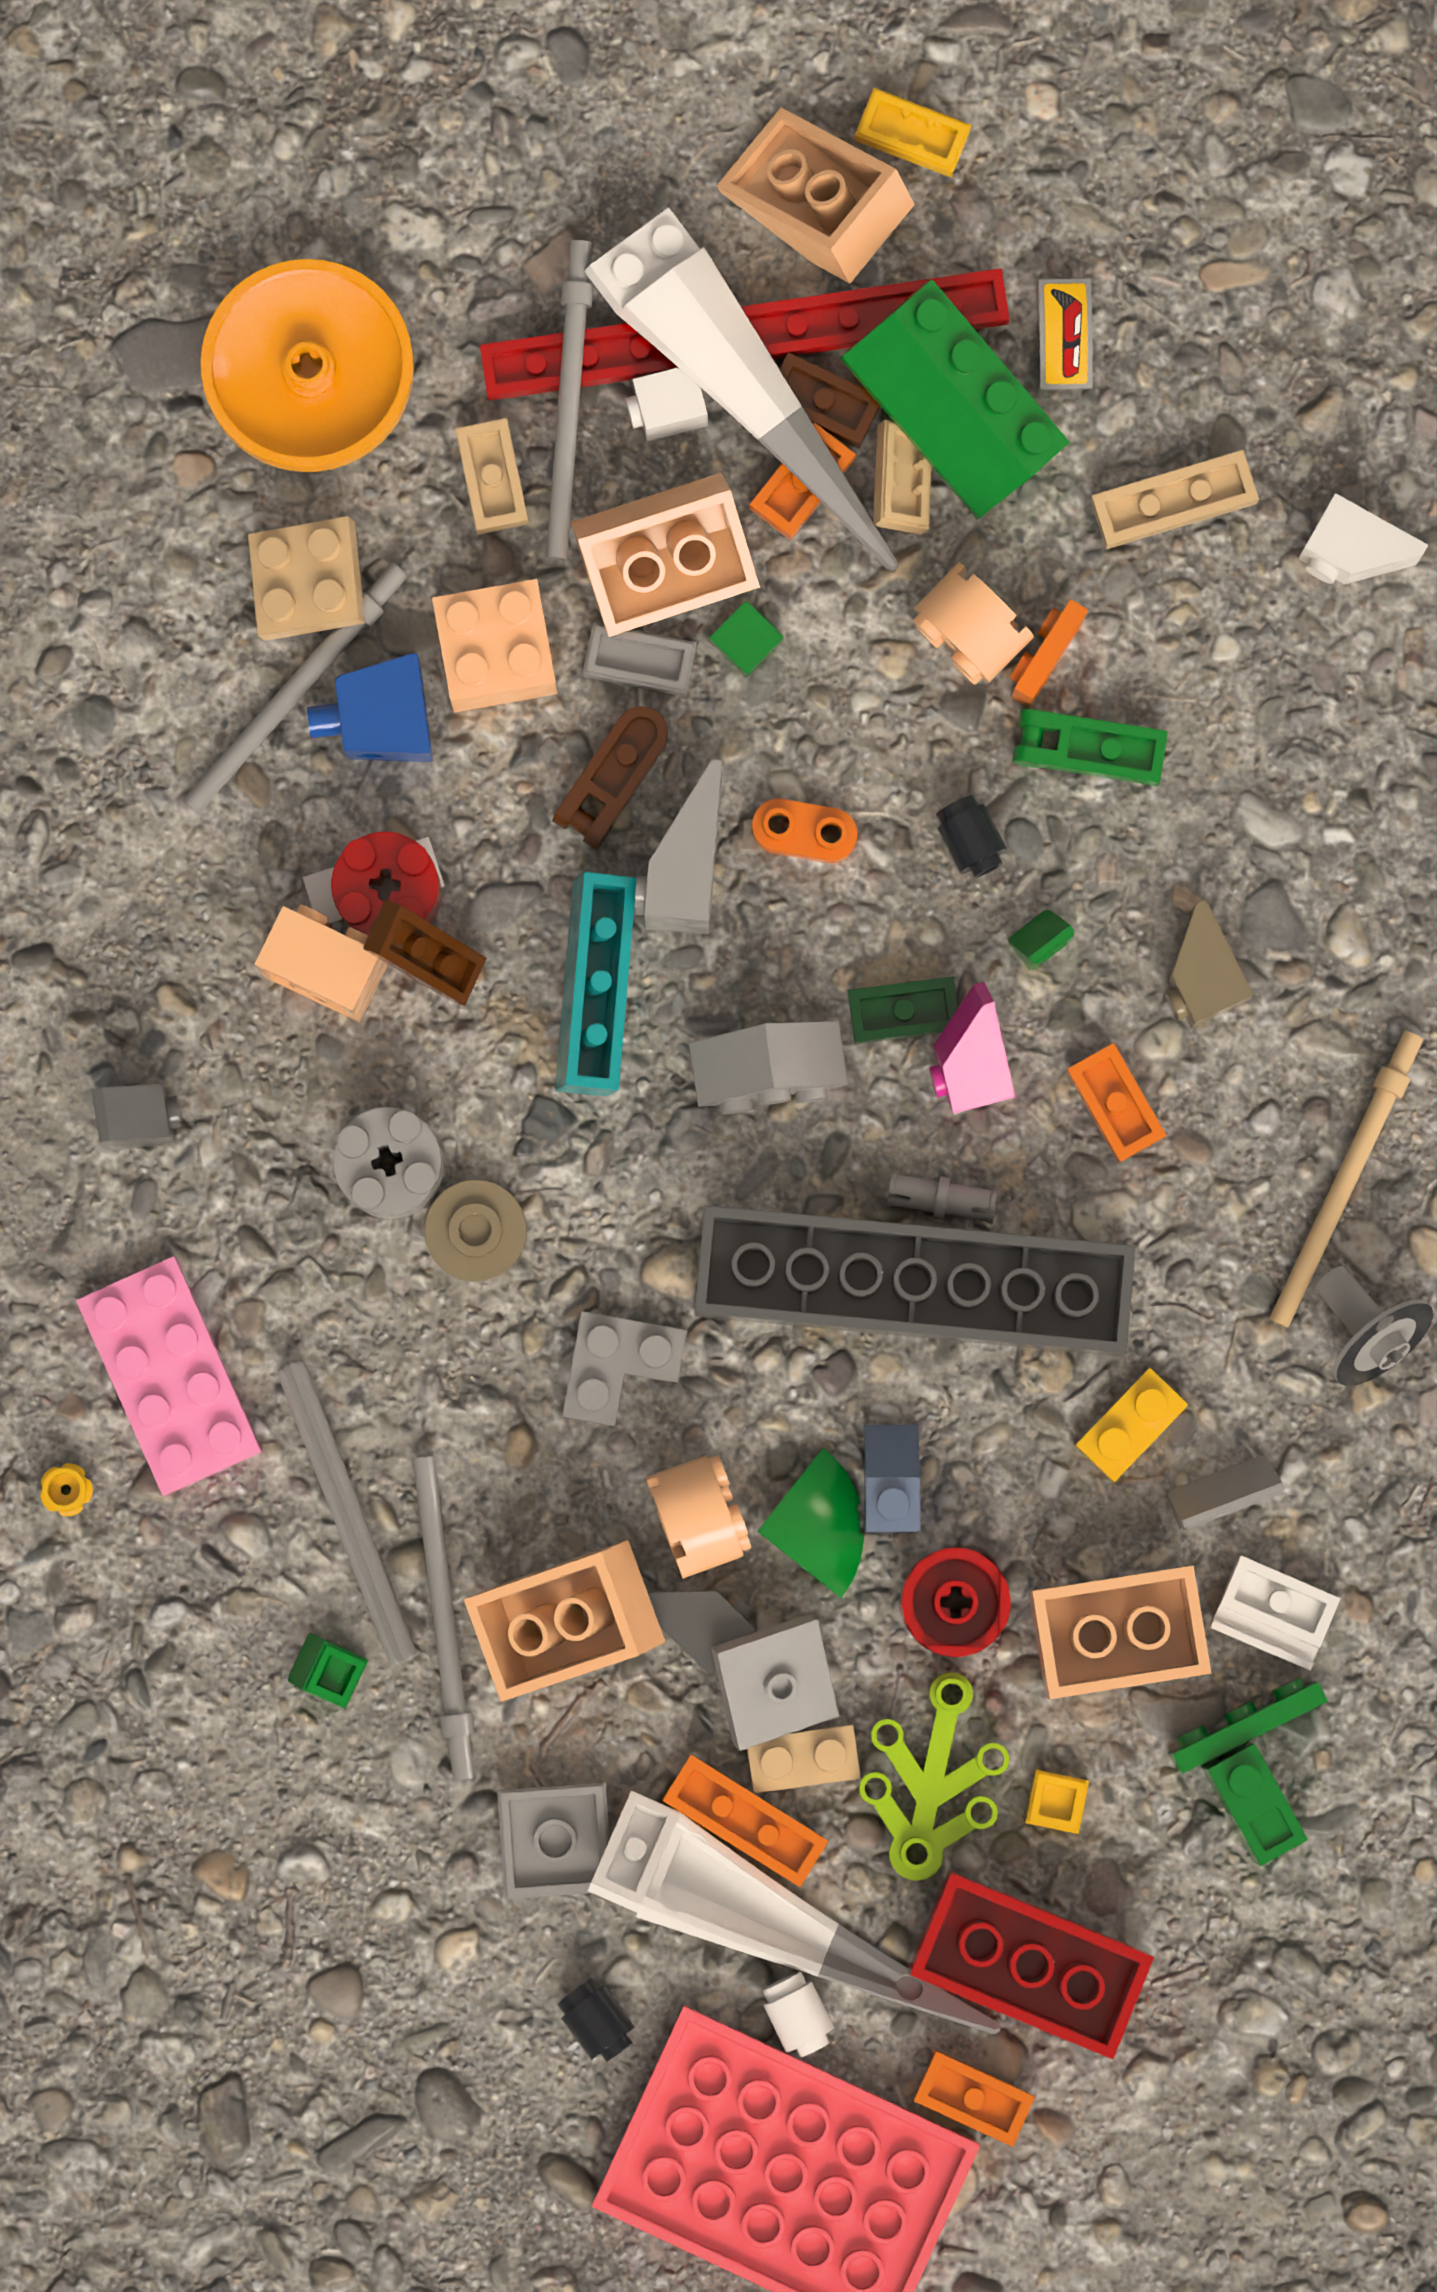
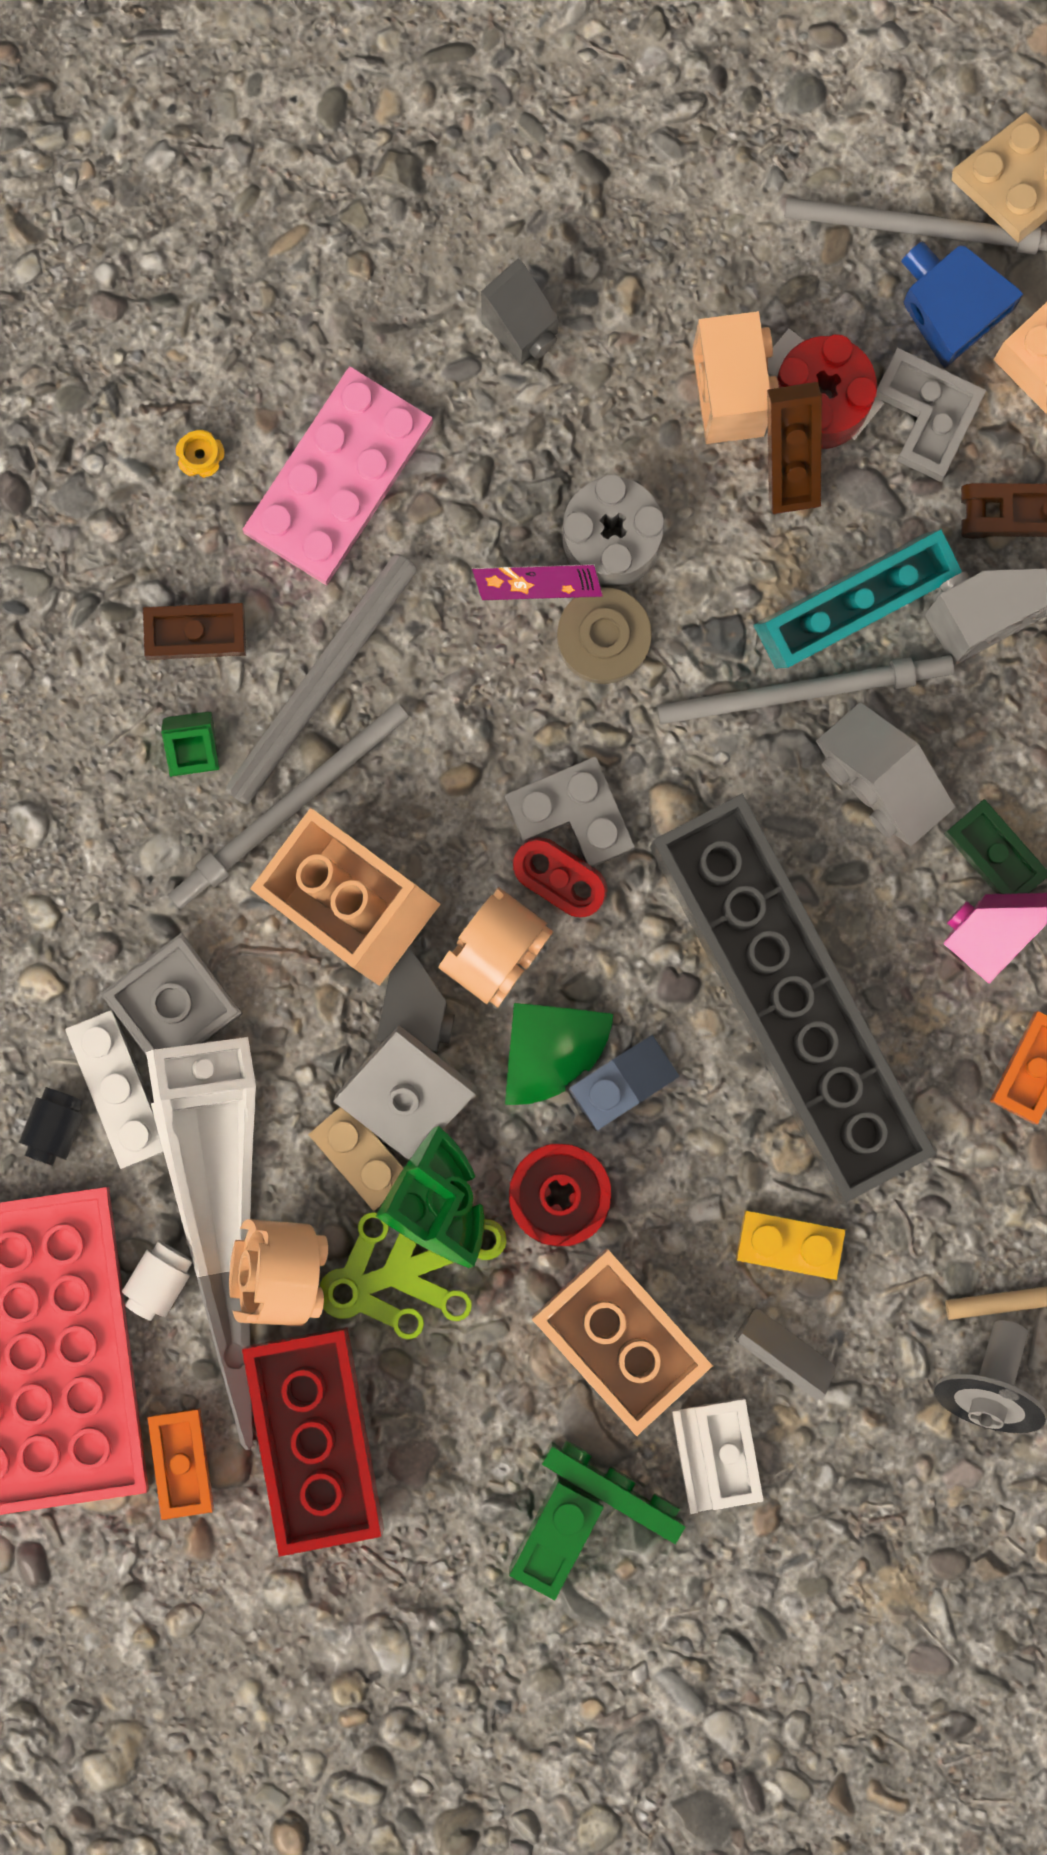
camera: 55 degrees right, 0 degrees up
(228, 1600) = (194, 631): none -> reddish brown plate
(390, 1260) = (537, 582): none -> magenta sticker
(468, 789) = (942, 409): none -> light grey plate
(599, 1940) = (116, 1088): none -> white plate
(671, 1418) = (559, 879): none -> red plate
(685, 987) = (900, 674): none -> light grey bar
(745, 1820) = (282, 1141): orange plate -> none
(861, 1900) = (277, 1273): none -> light nougat brick
(888, 1717) = (435, 1202): none -> green brick
(942, 1198) = (870, 979): light grey pin -> none
(1056, 1801) = (456, 1378): yellow tile -> none

